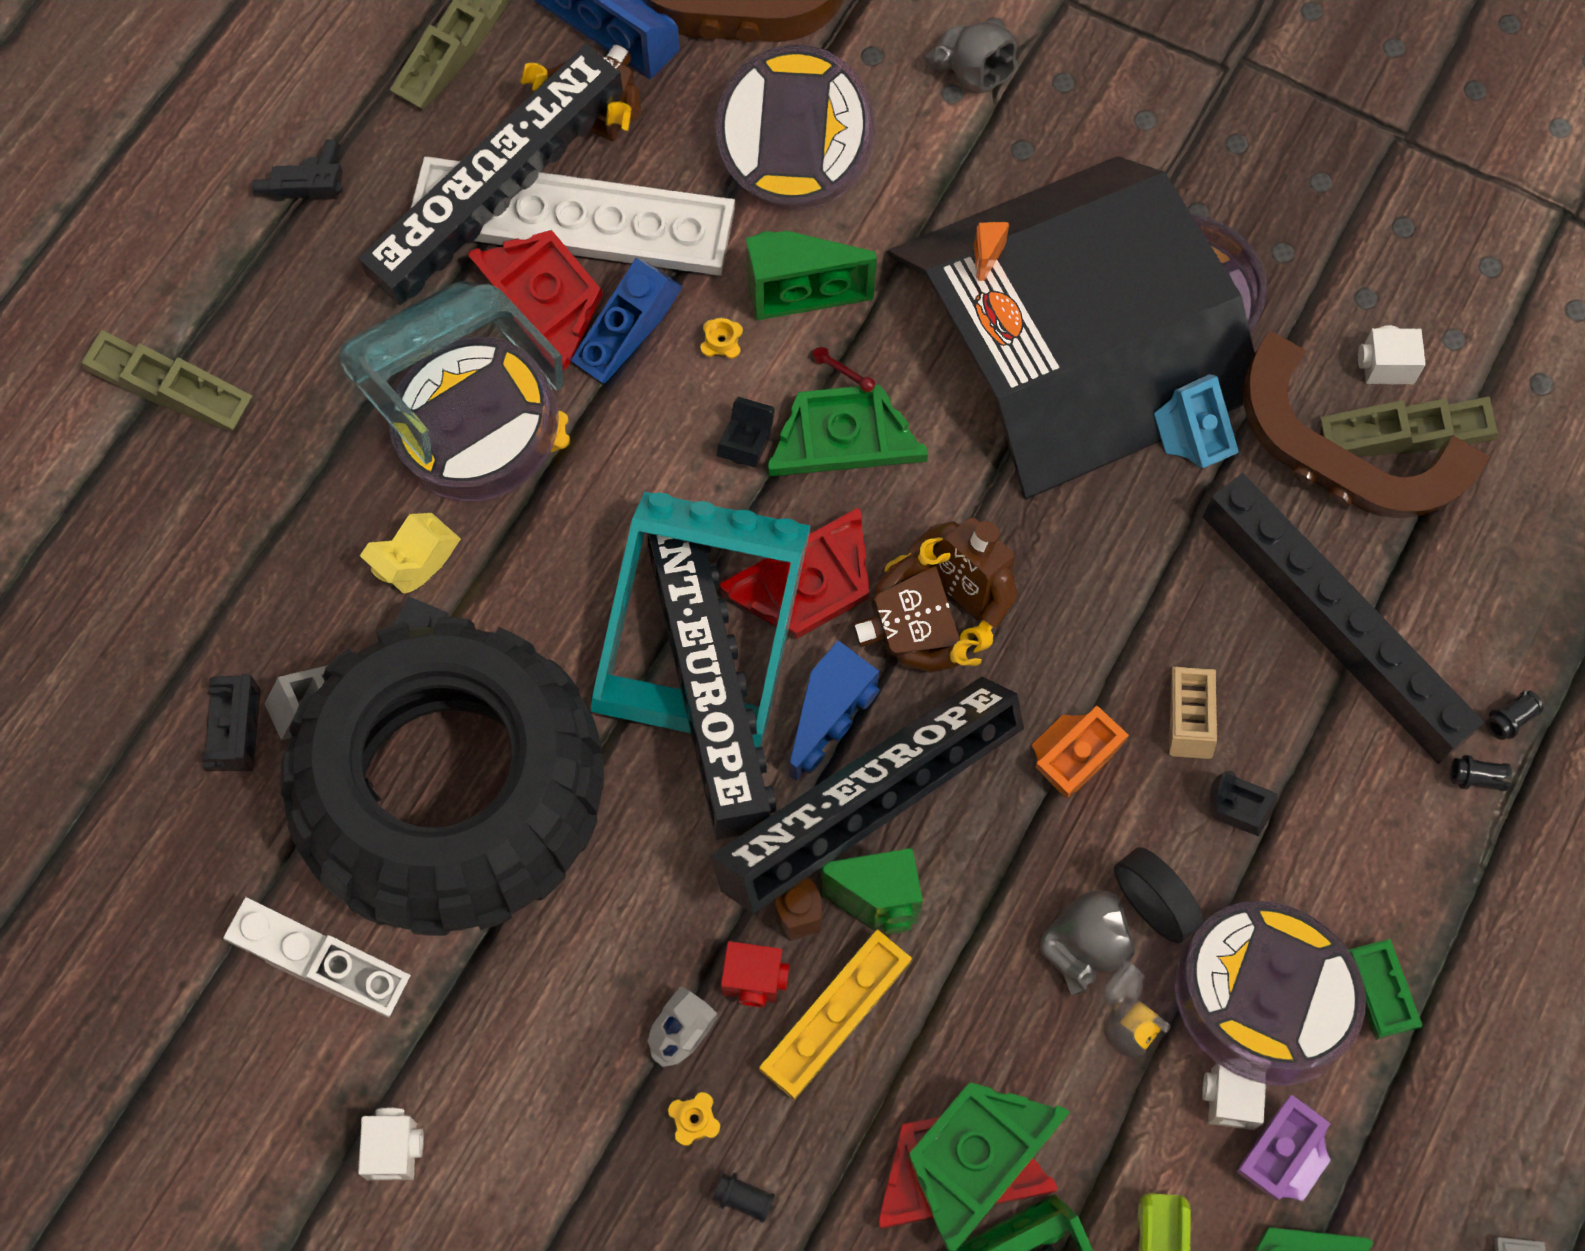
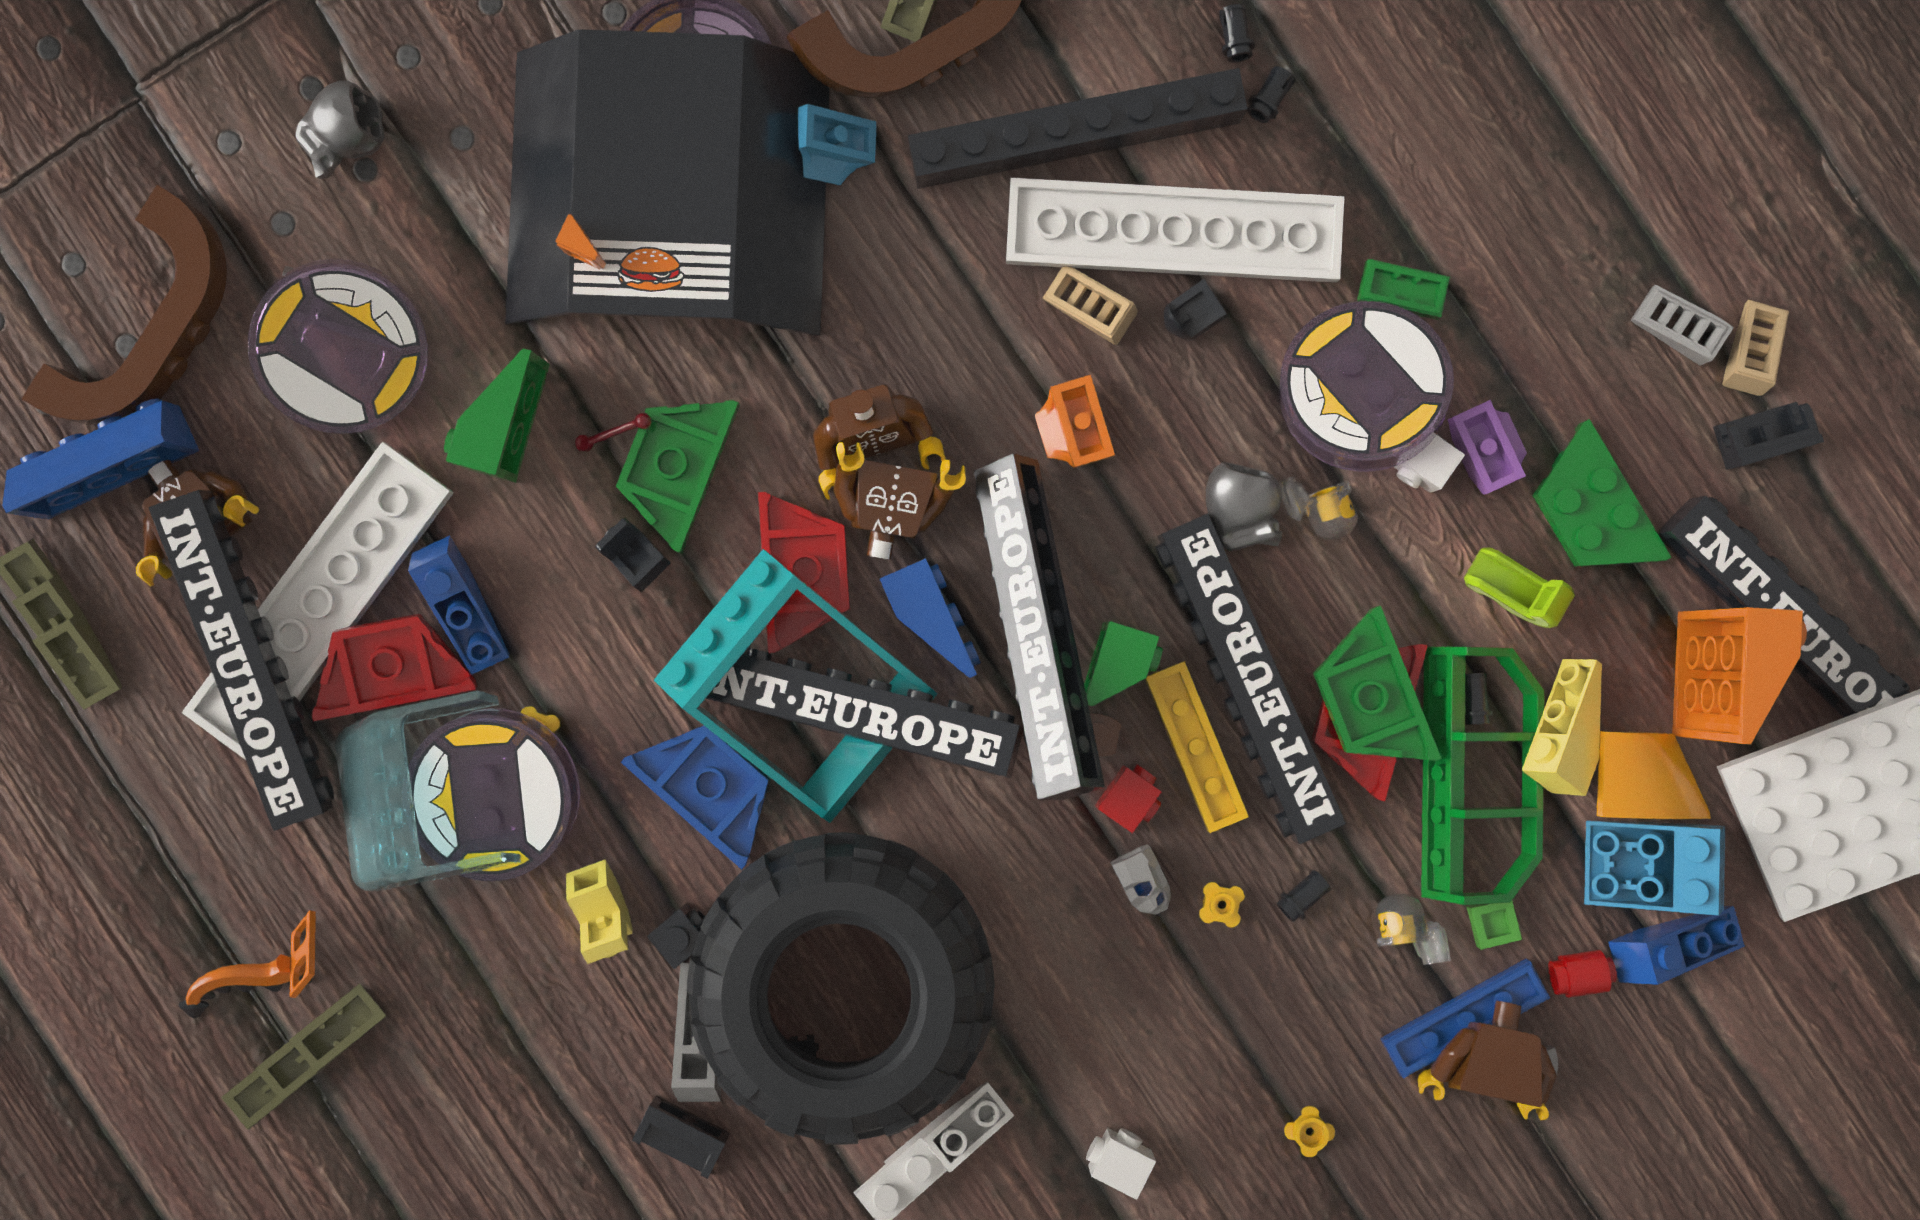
camera: 65 degrees left, 20 degrees up
(228, 324) = (269, 975): none -> orange piece
(314, 179) = (149, 827): black piece -> none
(570, 591) = (707, 787): none -> blue wing
(721, 328) = (509, 526): yellow plate -> none
(926, 1034) = (1250, 680): none -> black brick
(1158, 895) = (1242, 431): black tyre -> none
(1307, 754) = (1175, 230): none -> white plate

